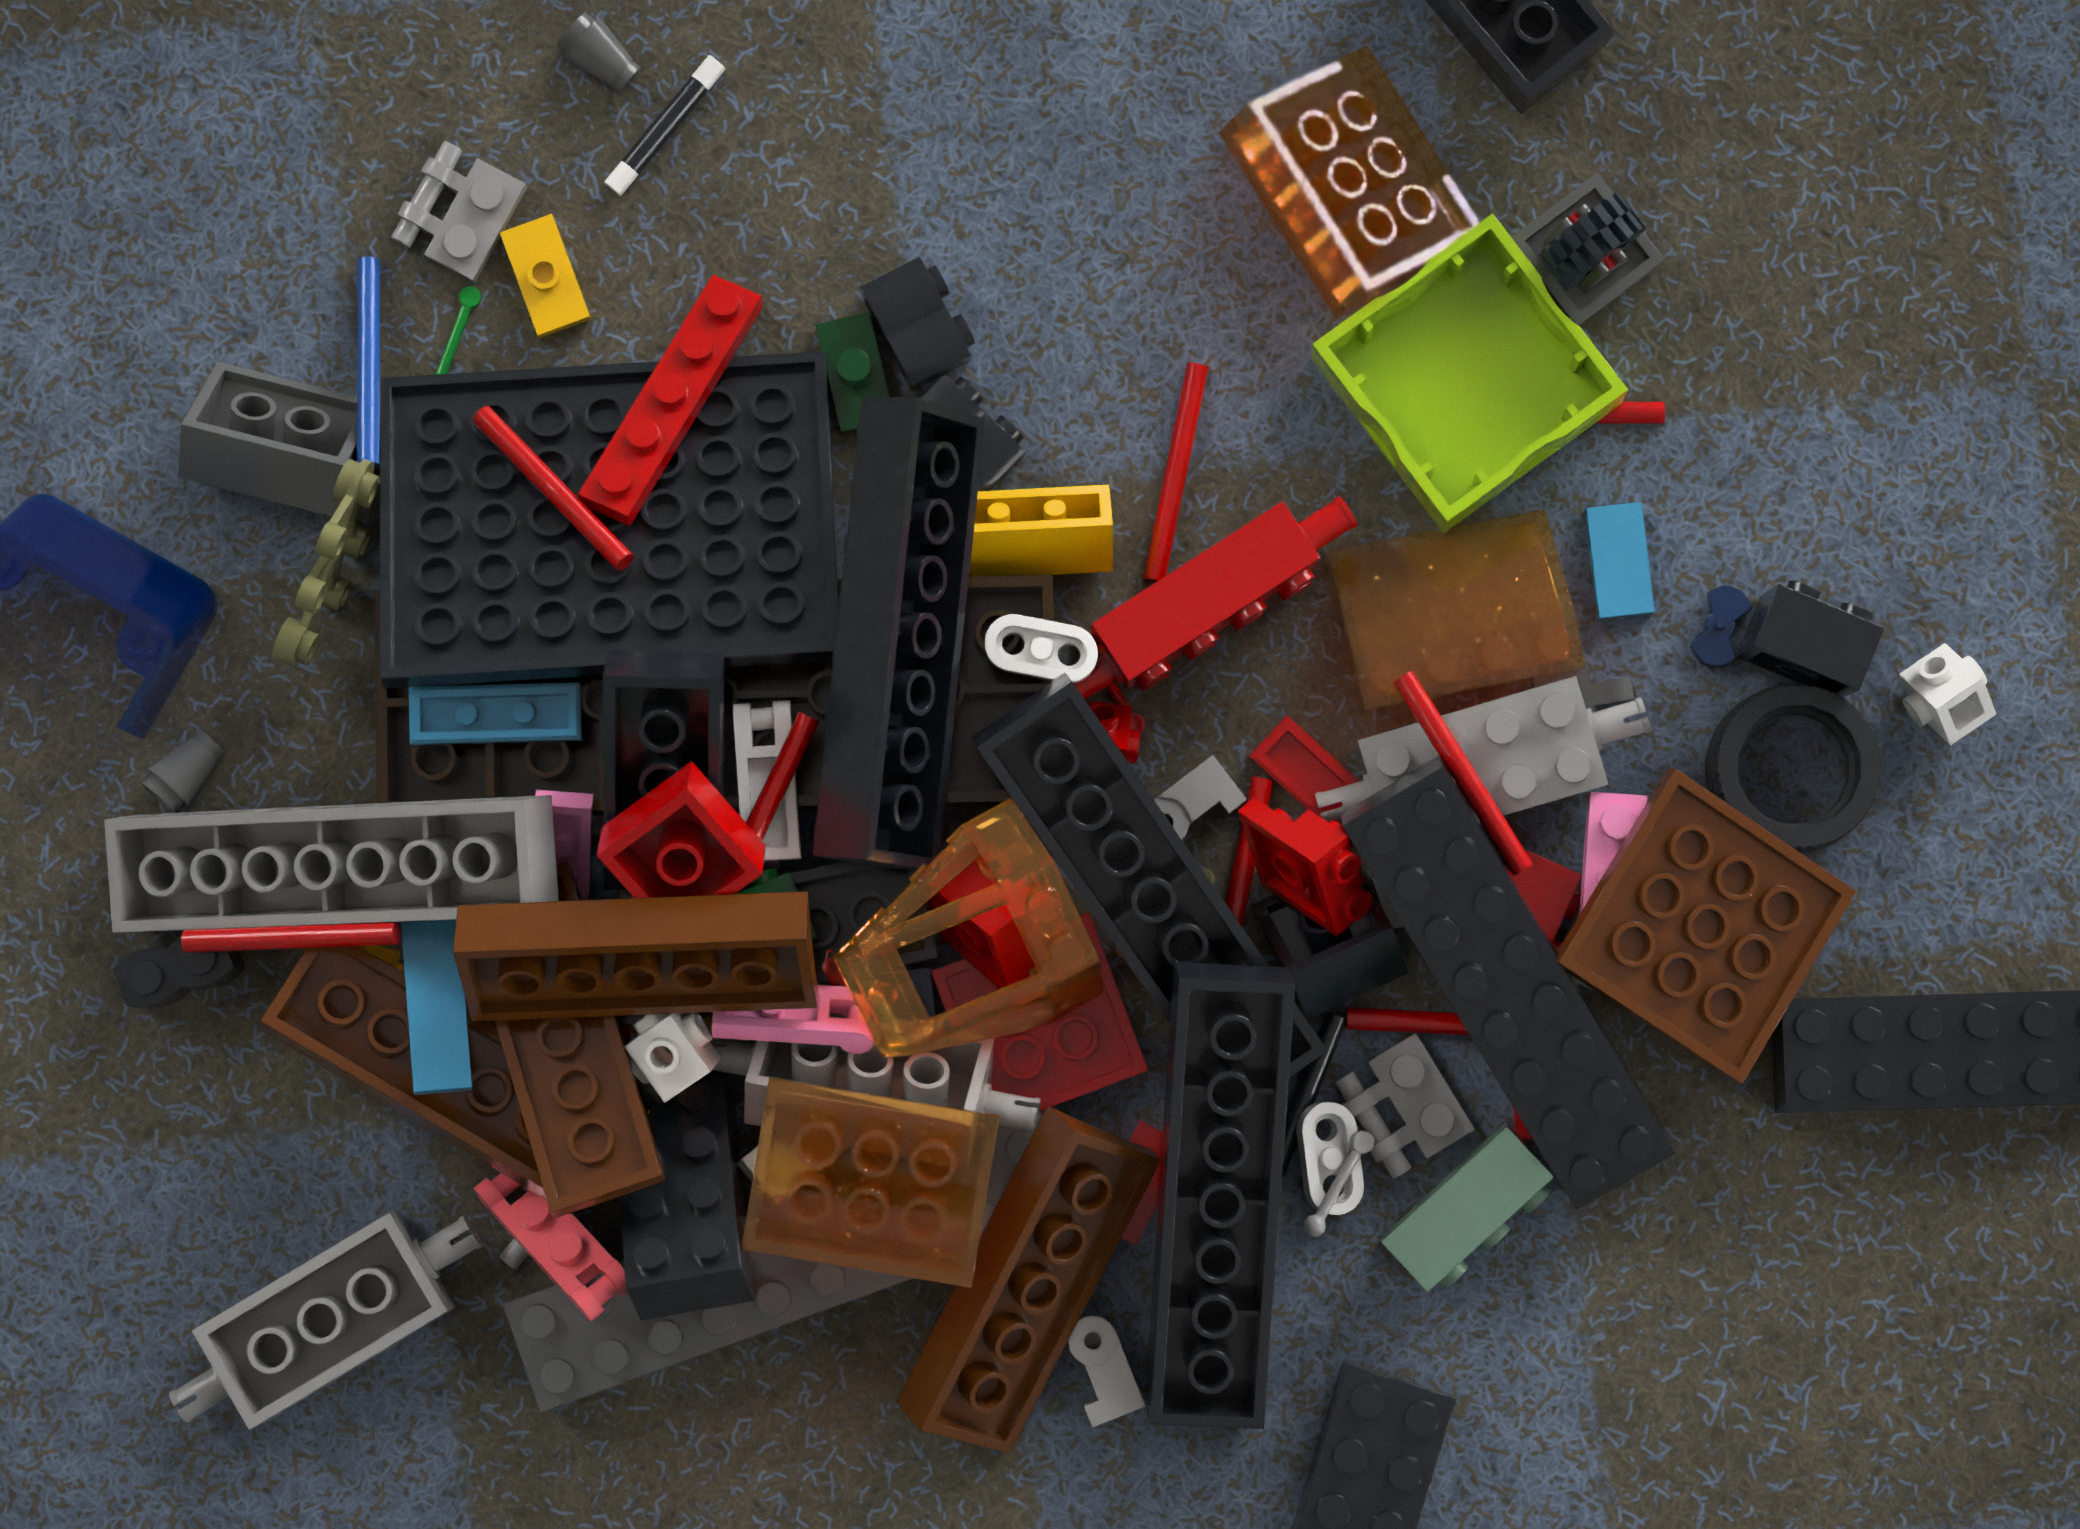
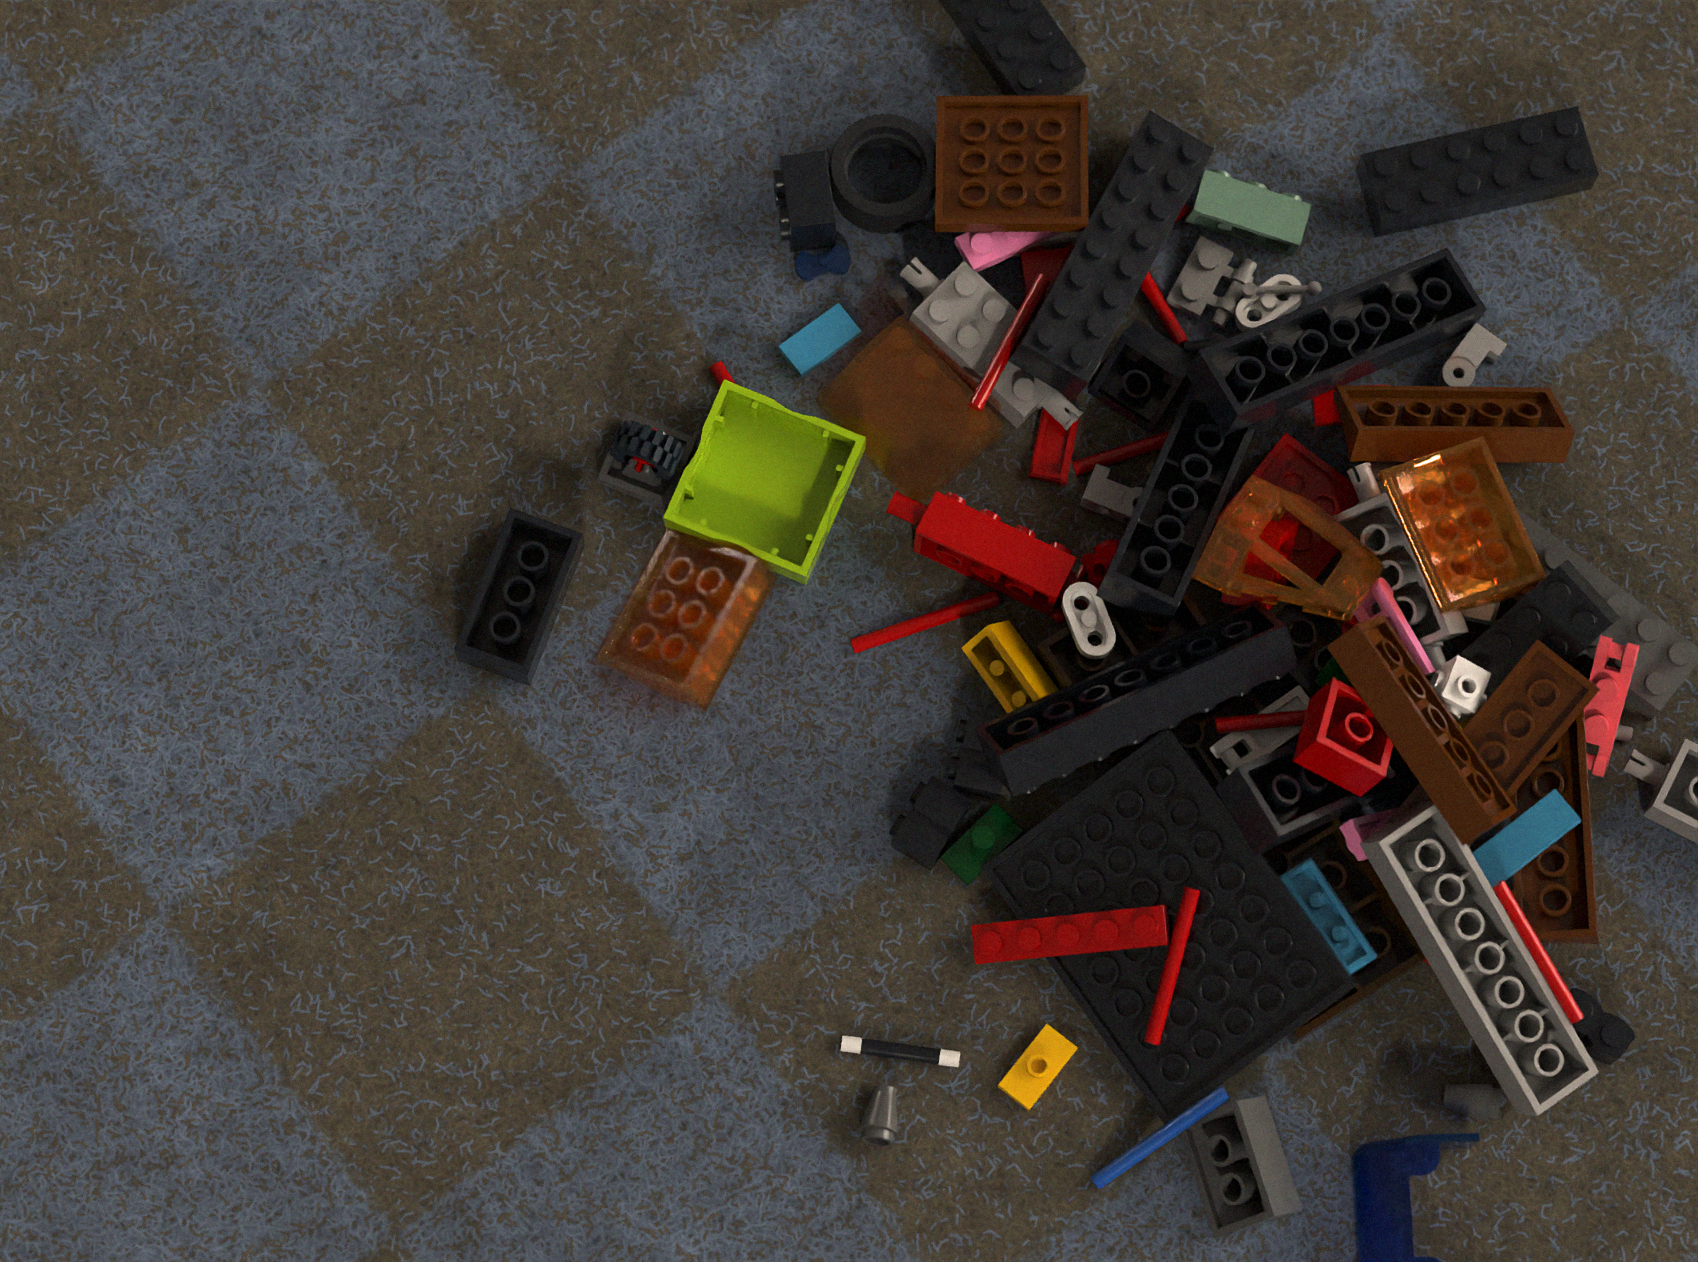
camera: 125 degrees left, 10 degrees down
(324, 586) = (1246, 1085): olive plant -> none
(469, 298) = (1079, 1106): green hinge -> none
(474, 219) = (1028, 1132): light grey plate -> none
(1307, 864) = (1115, 398): red plate -> none
(1945, 683) = (787, 113): white brick -> none

